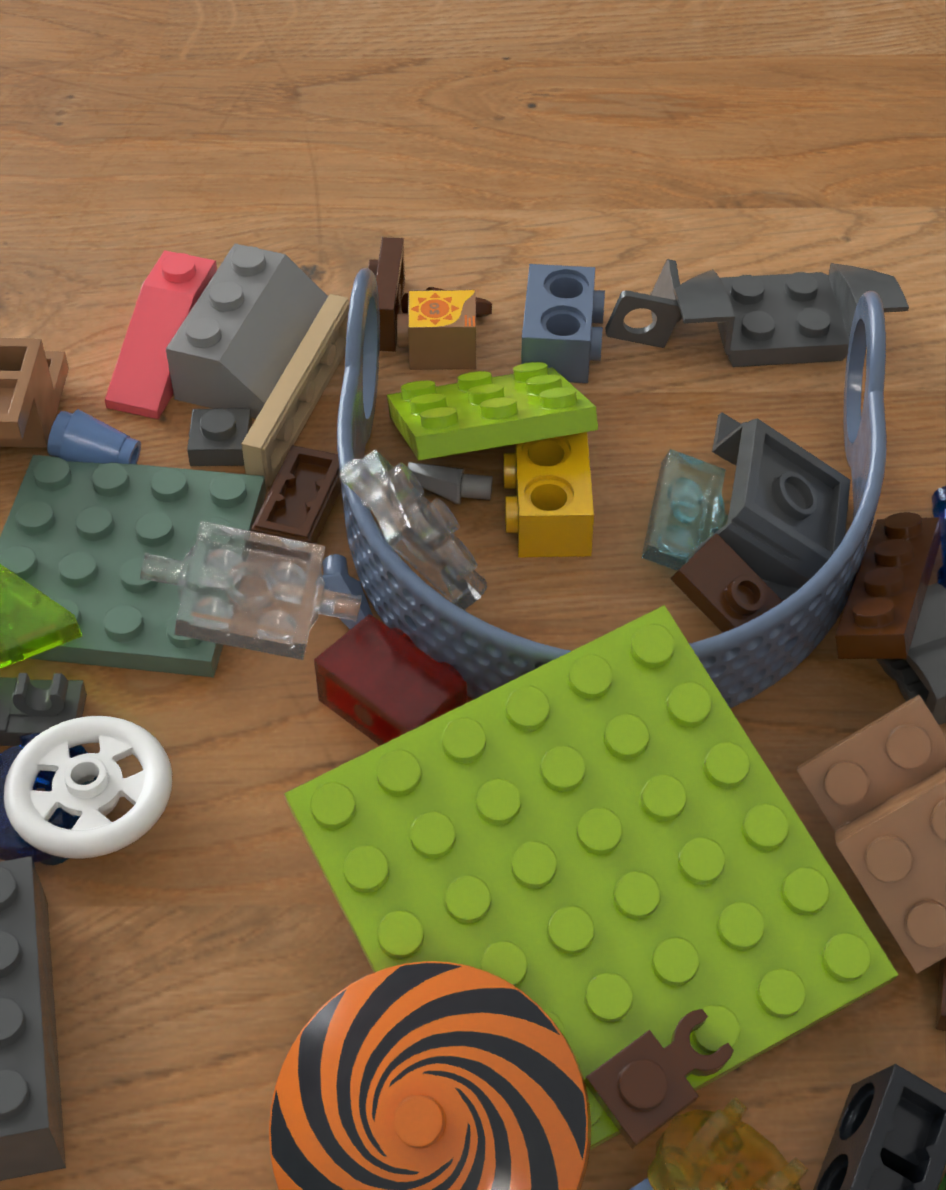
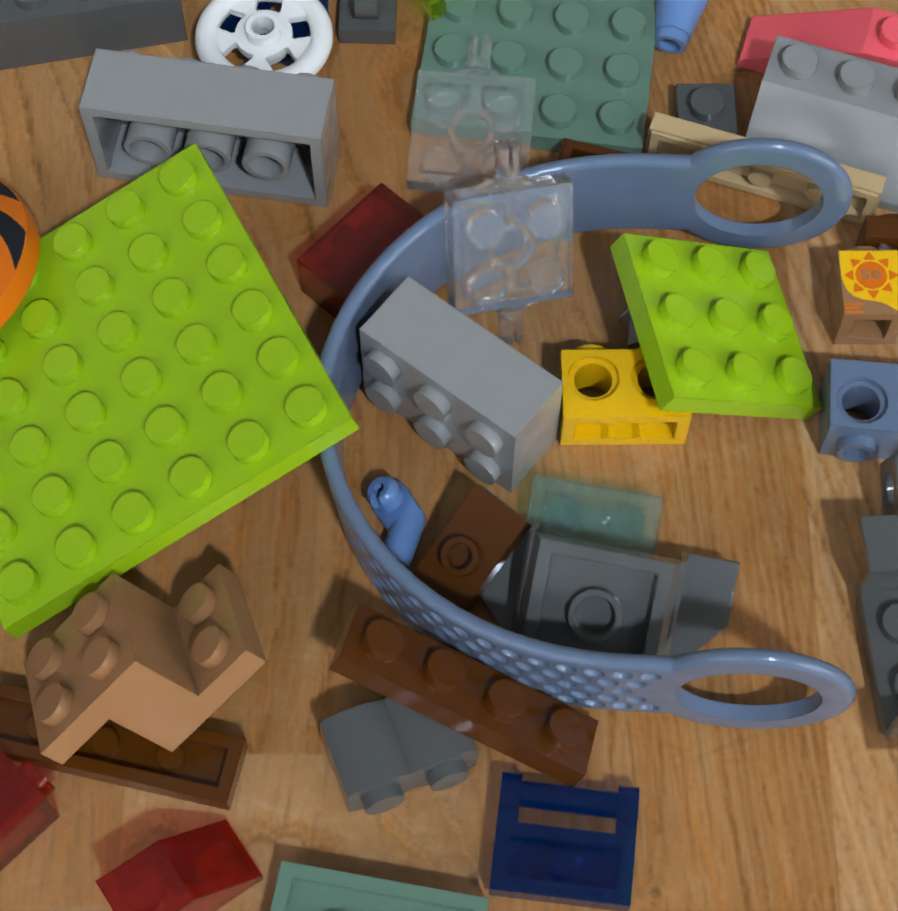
camera: 90 degrees right, 15 degrees up
(222, 823) = (256, 127): none -> light grey brick
(574, 570) = (459, 385): none -> light grey brick

